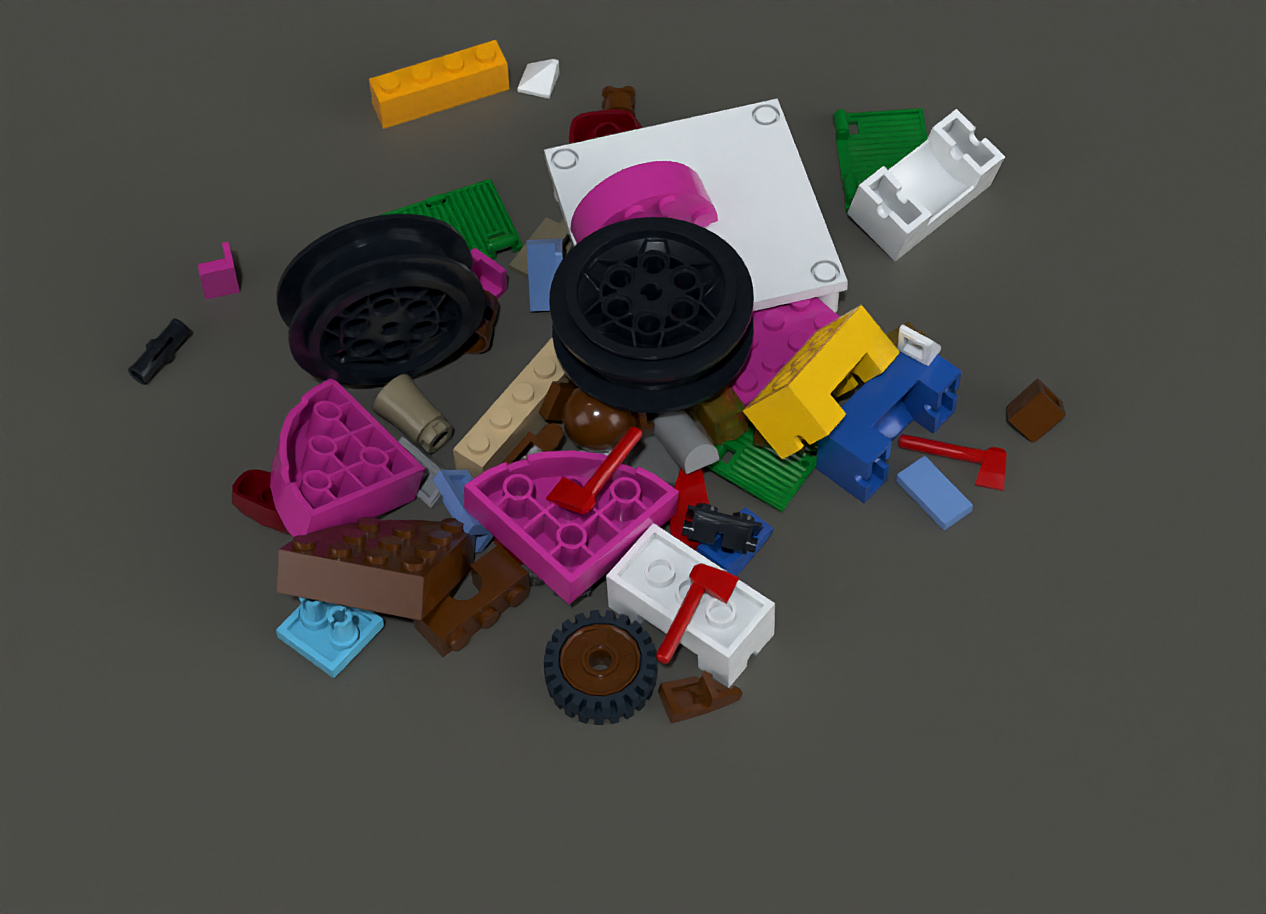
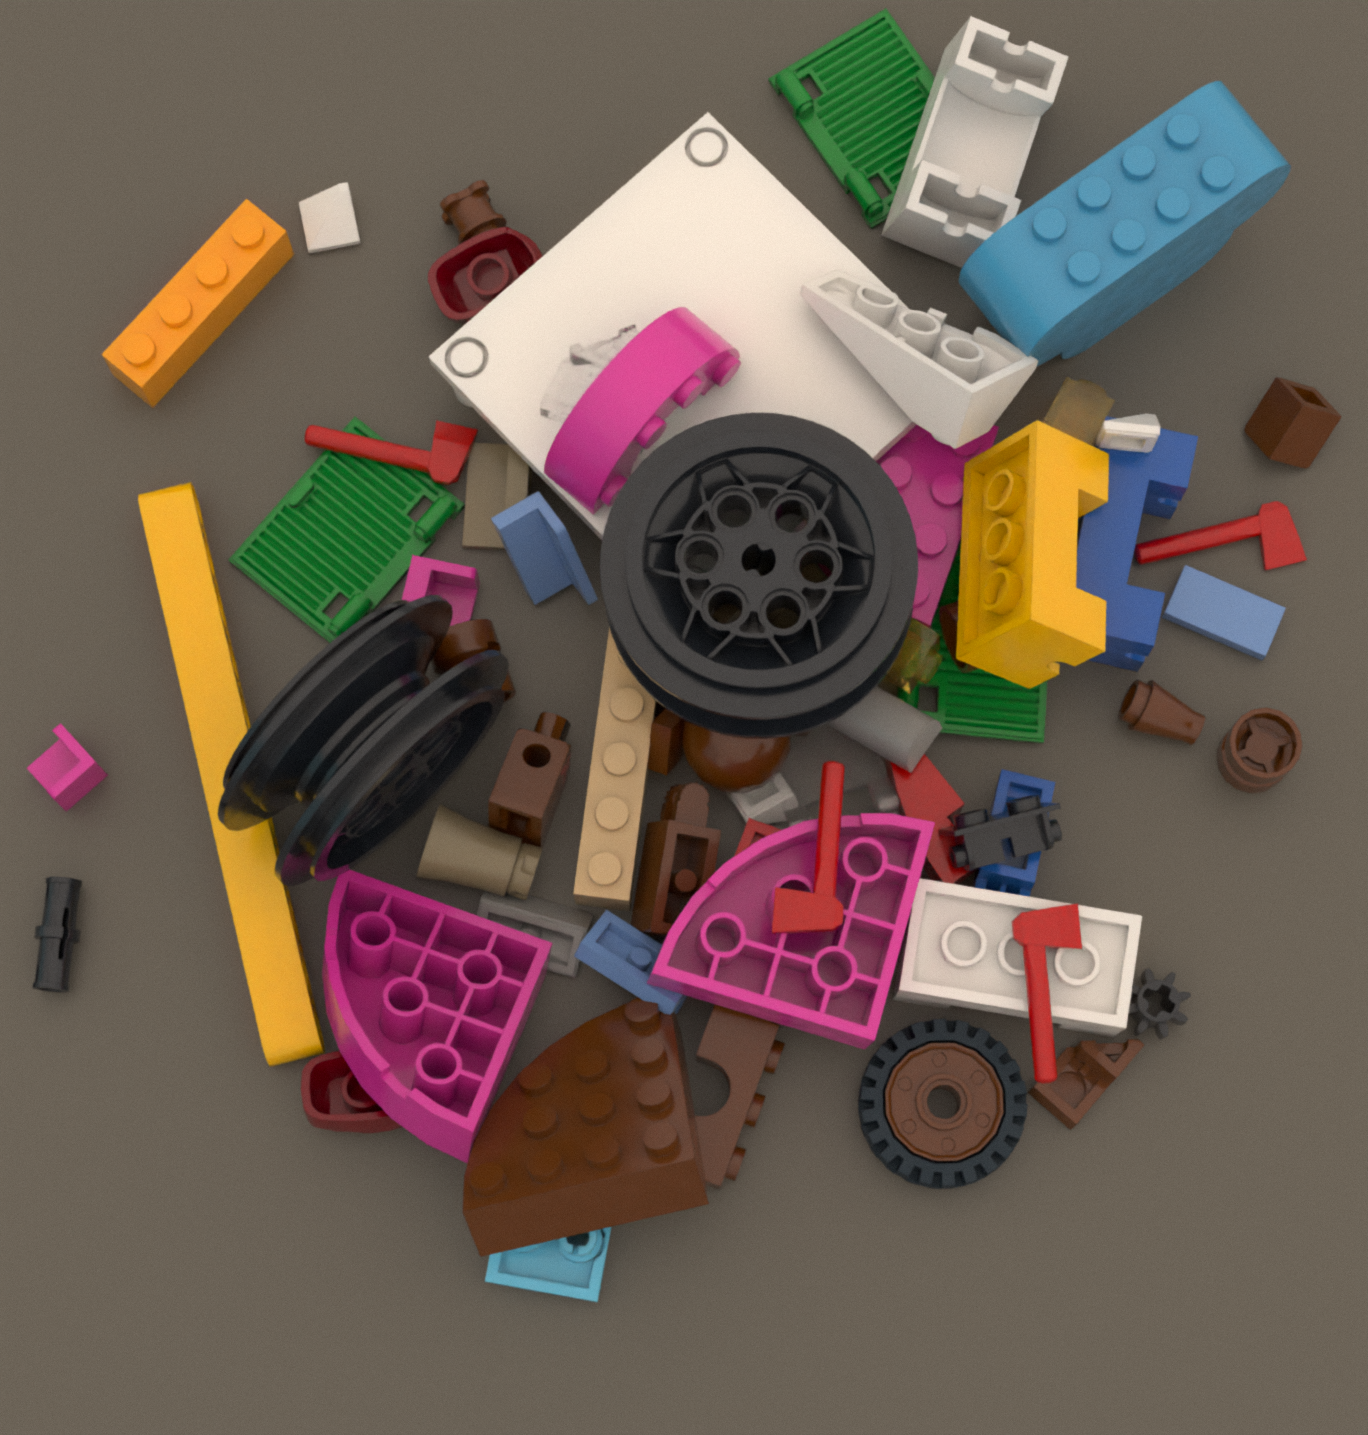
camera: 30 degrees left, 20 degrees up
(281, 376) = (217, 725): none -> yellow beam
(467, 389) = (532, 780): none -> reddish brown torso
(524, 219) = (443, 463): none -> red piece
(761, 673) = (1170, 1002): none -> black gear
(818, 260) = (933, 371): none -> white wedge
(859, 523) = (1157, 712): none -> reddish brown cone
(907, 566) = (1259, 750): none -> reddish brown wheel
(980, 250) = (1125, 227): none -> dark azure brick

